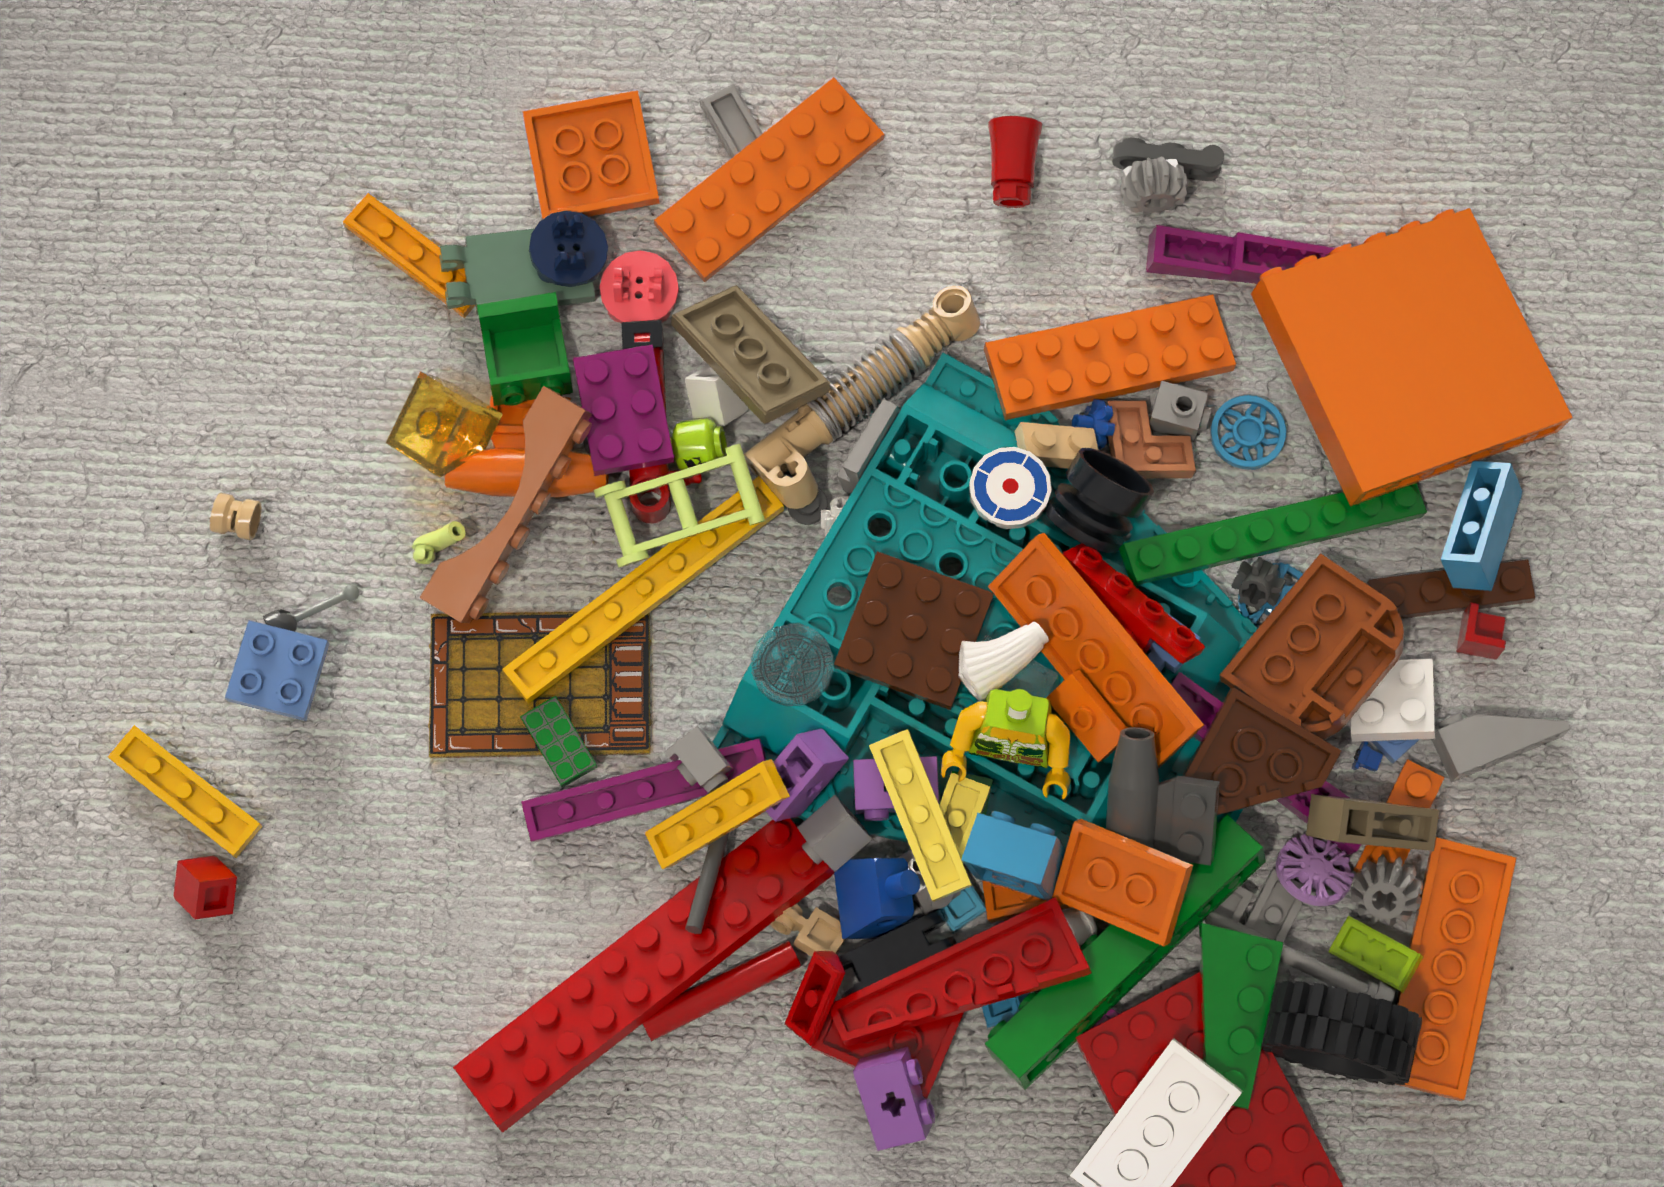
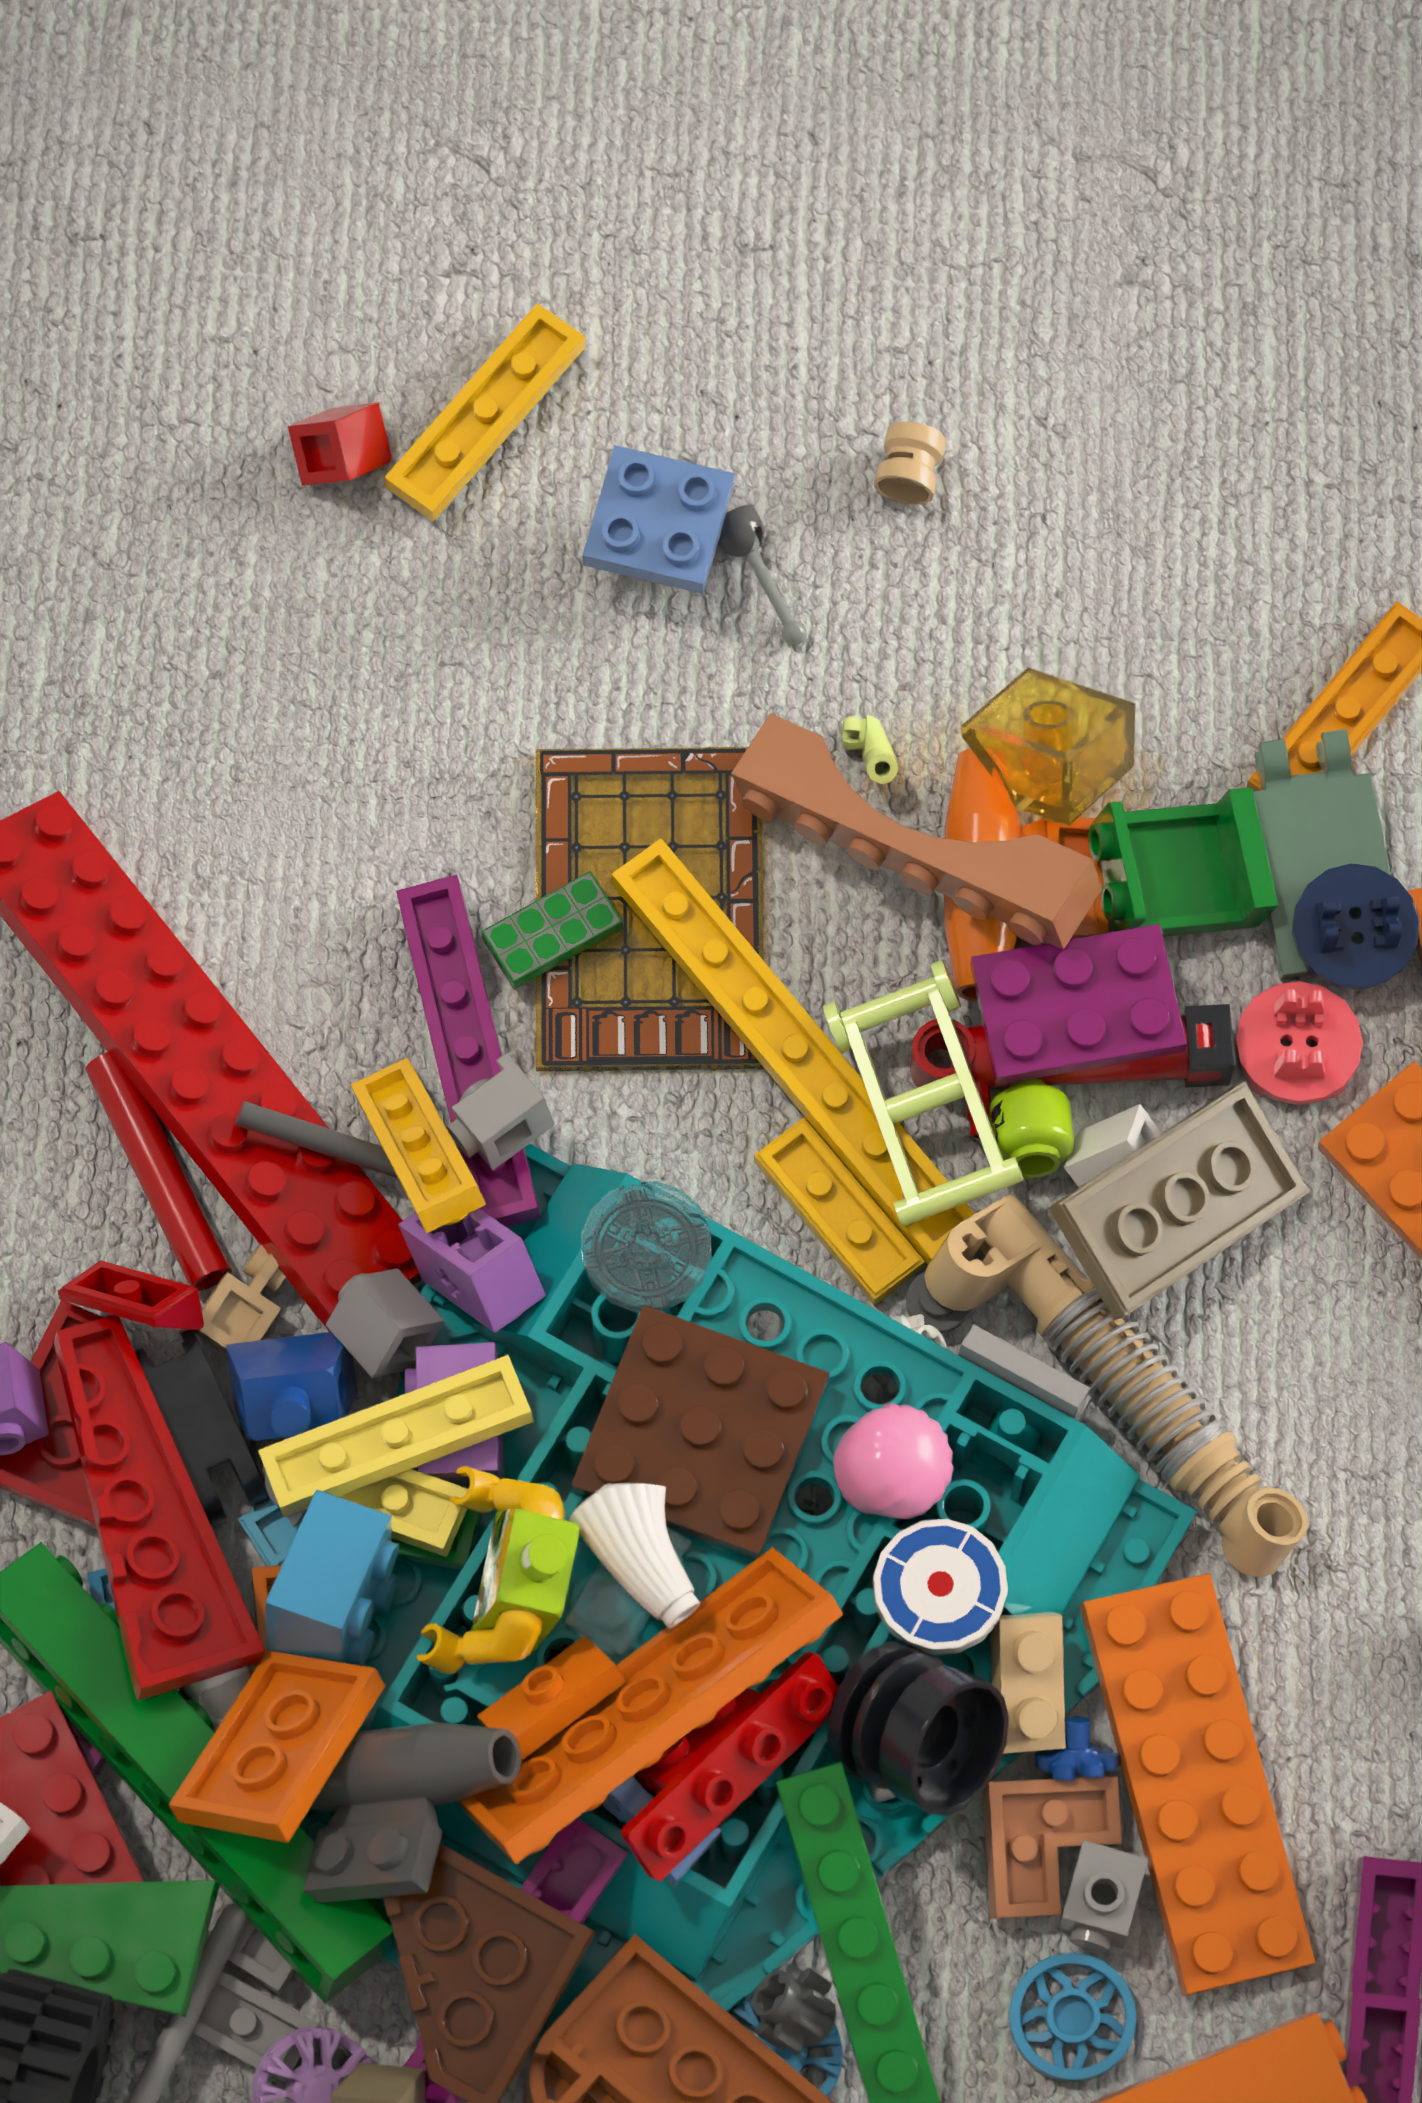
camera: 90 degrees right, 5 degrees down
(747, 565) = (839, 1211): none -> yellow tile
(934, 513) = (893, 1462): none -> bright pink hair

